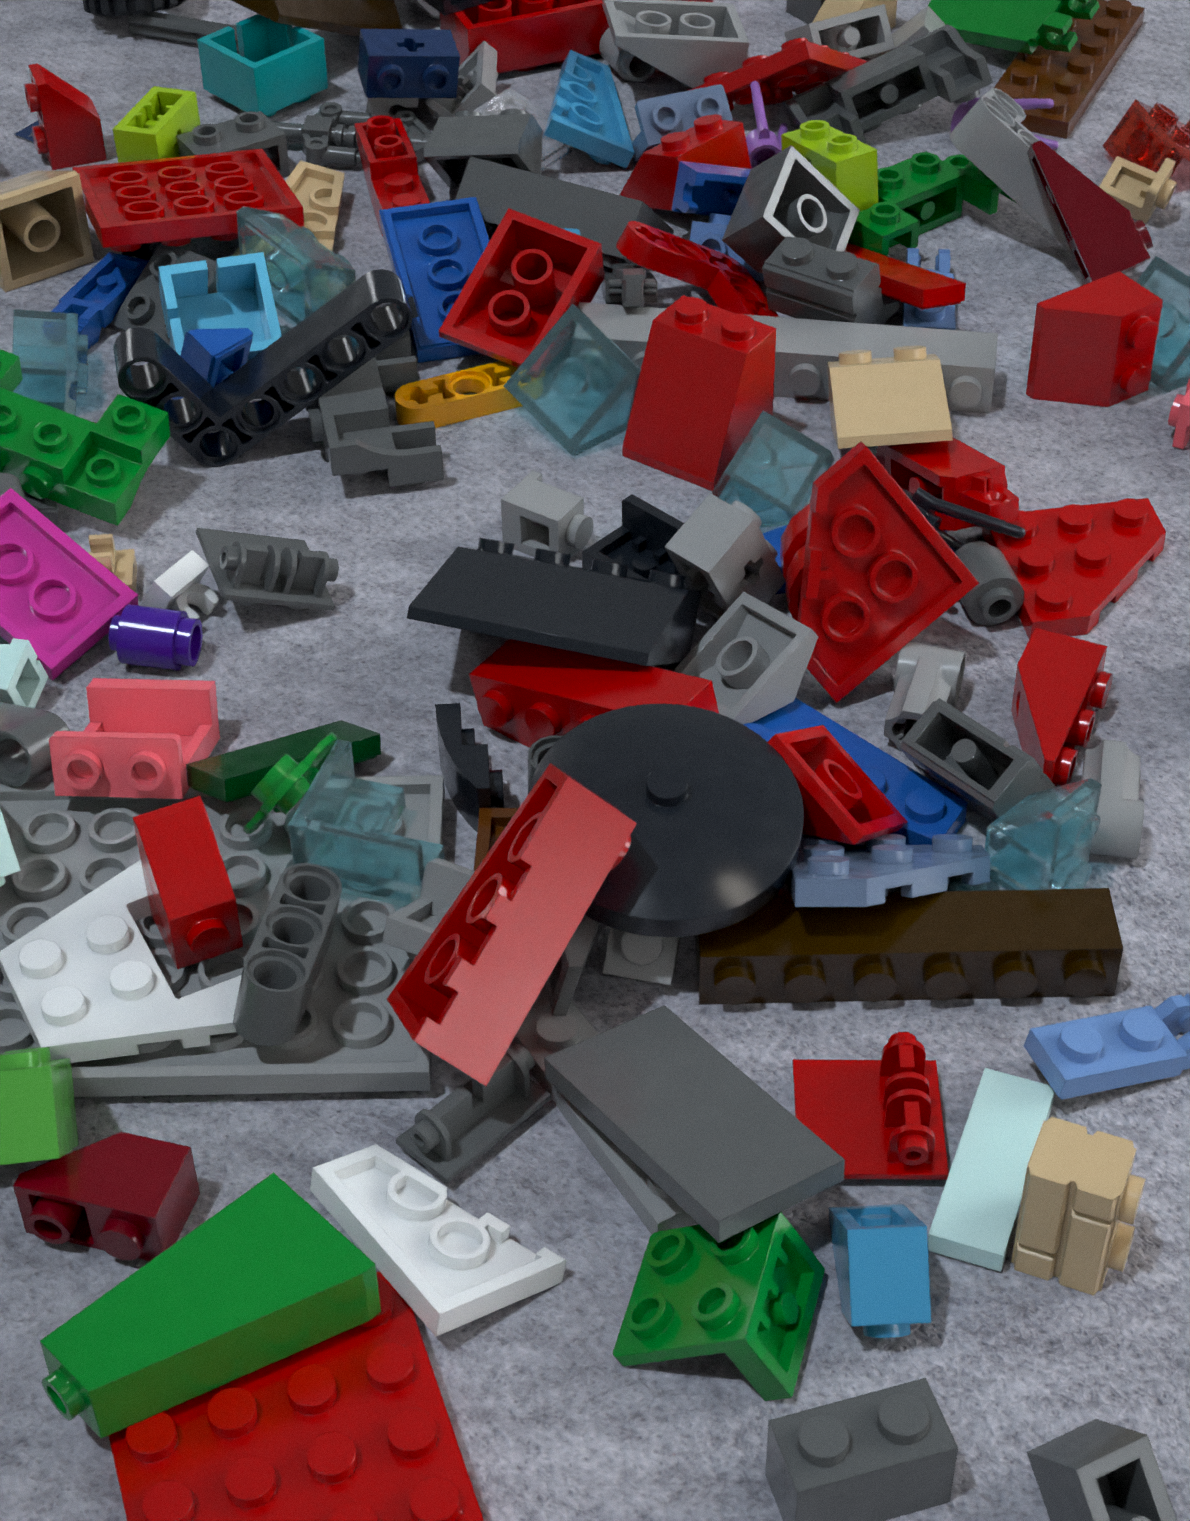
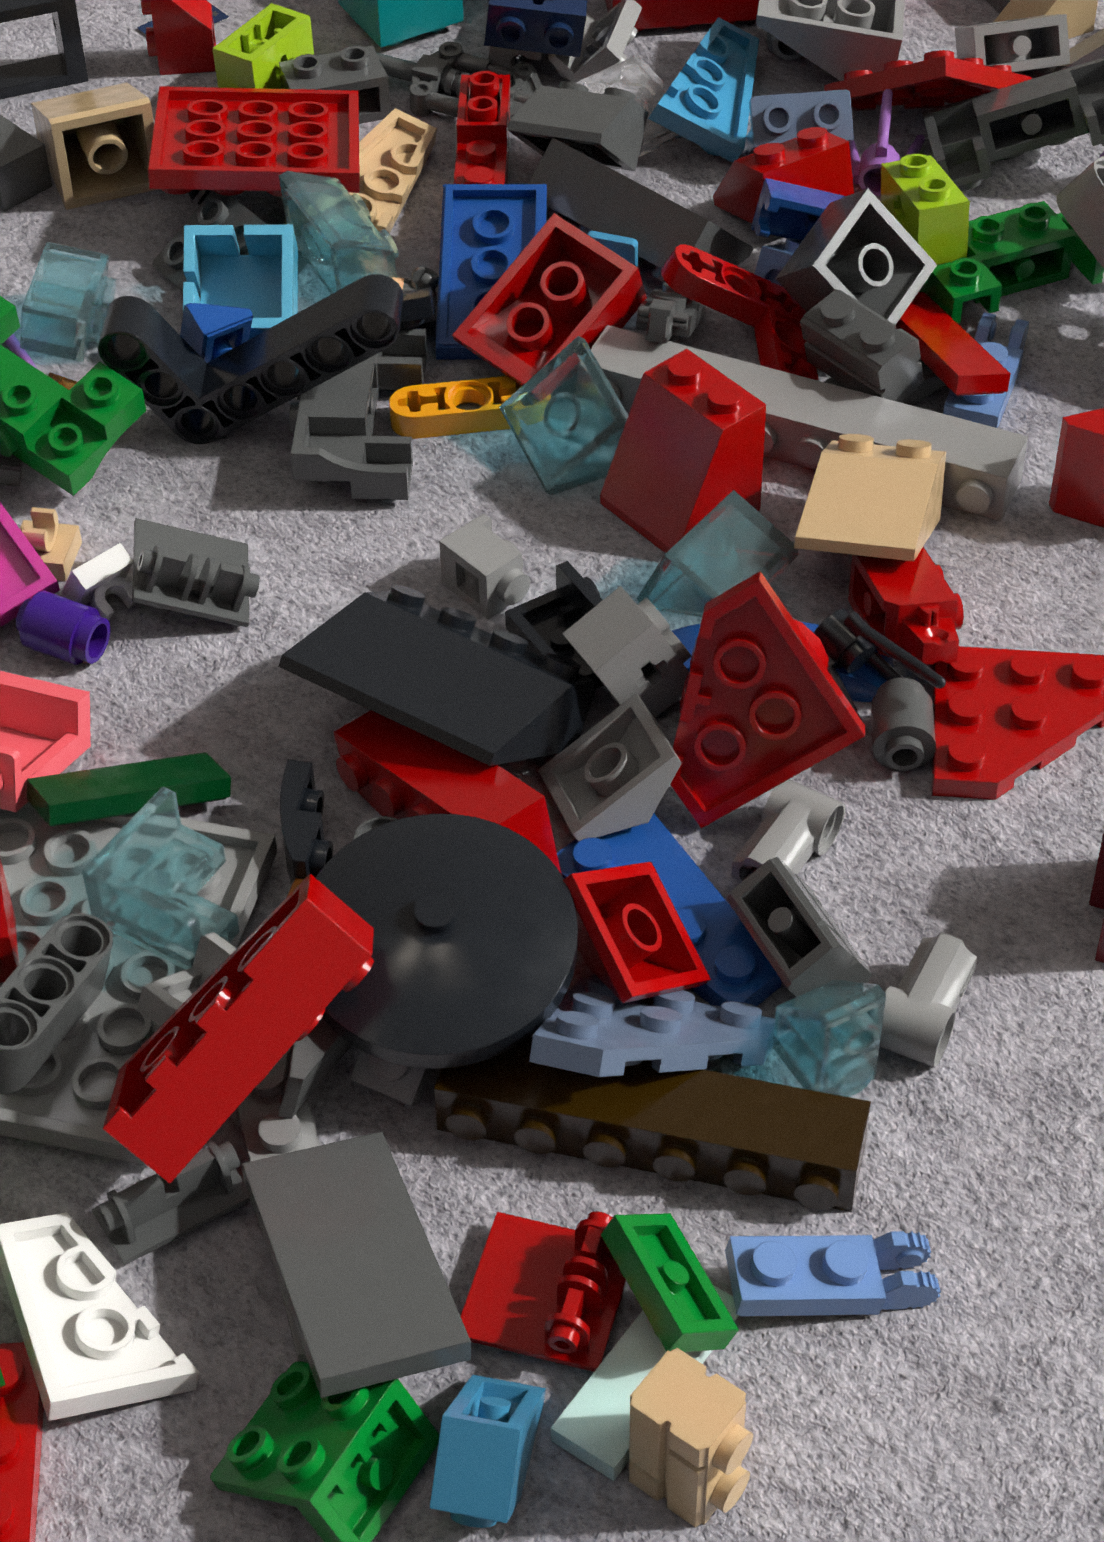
camera: 15 degrees right, 5 degrees up
(101, 293) = (144, 234): blue hinge -> none
(287, 783) = (100, 821): green plate -> none
(977, 1066) = (669, 1282): none -> green plate
(1054, 699) = (922, 867): red slope -> none

